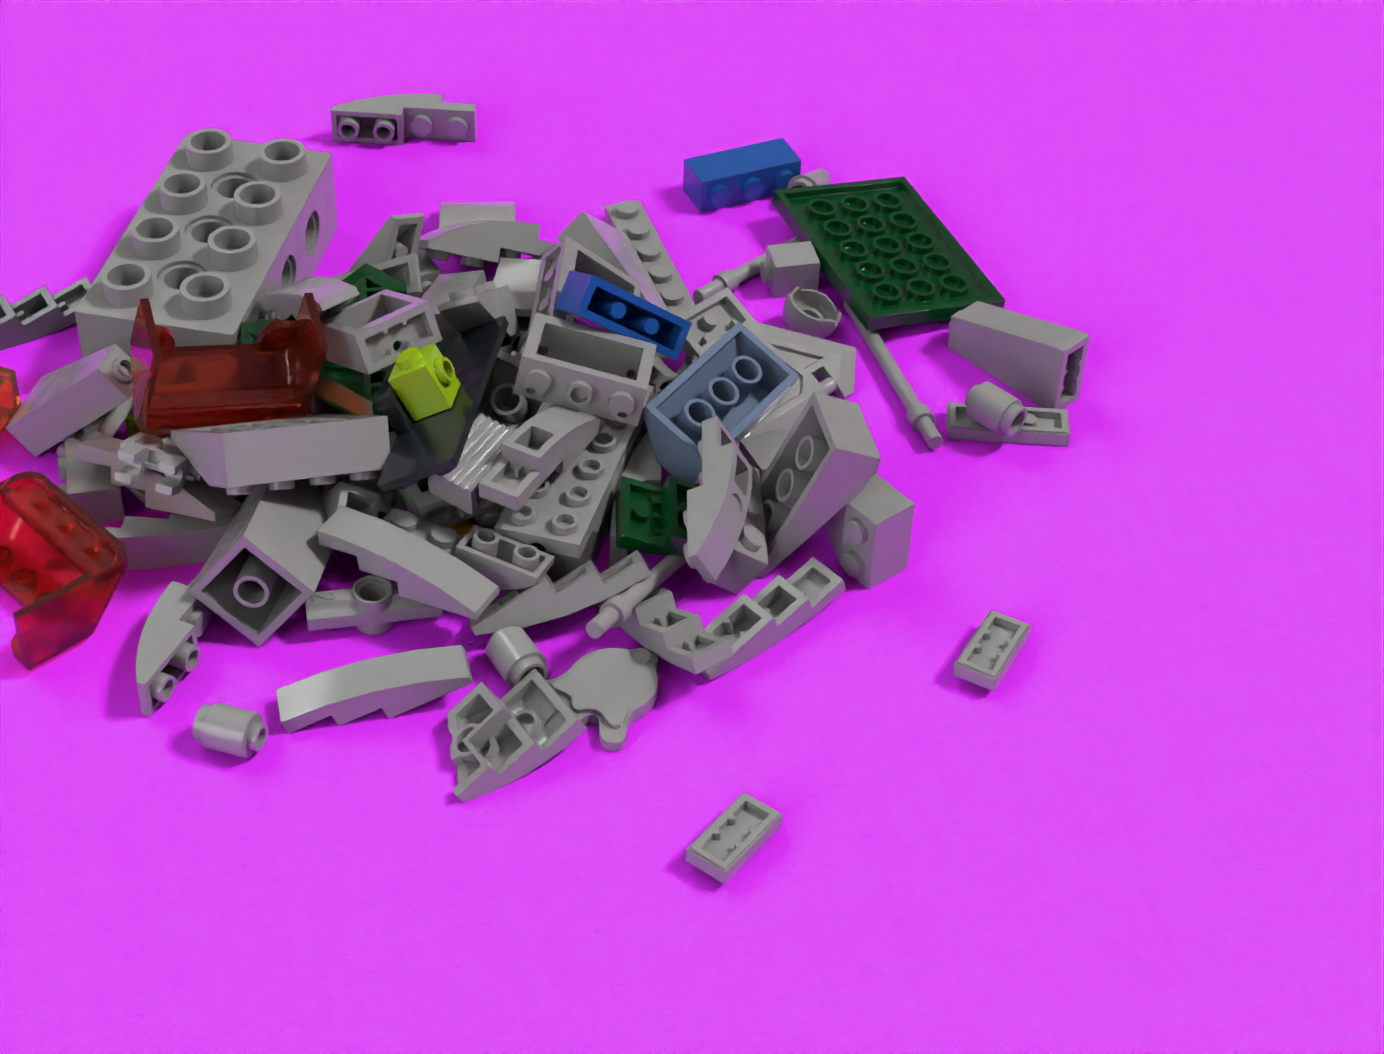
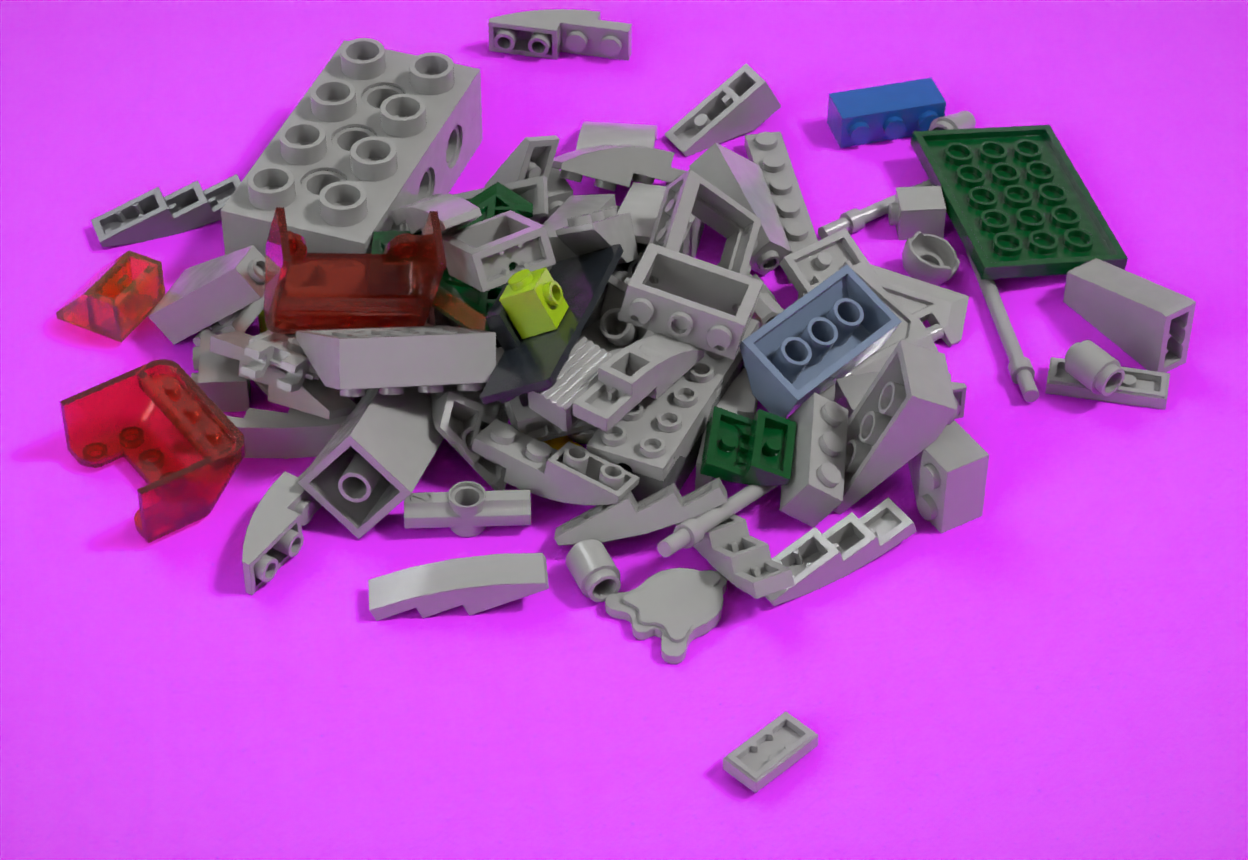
camera: 10 degrees right, 0 degrees up
(230, 729) = (322, 612): light grey brick -> none
(417, 566) = (509, 475): light grey slope -> none
(507, 736) = (575, 642): slope -> none
(582, 185) = (726, 113): none -> slope
(622, 313) = (734, 249): blue brick -> none
(719, 504) = (801, 440): light grey slope -> none
(992, 650) = (1047, 600): light grey plate -> none

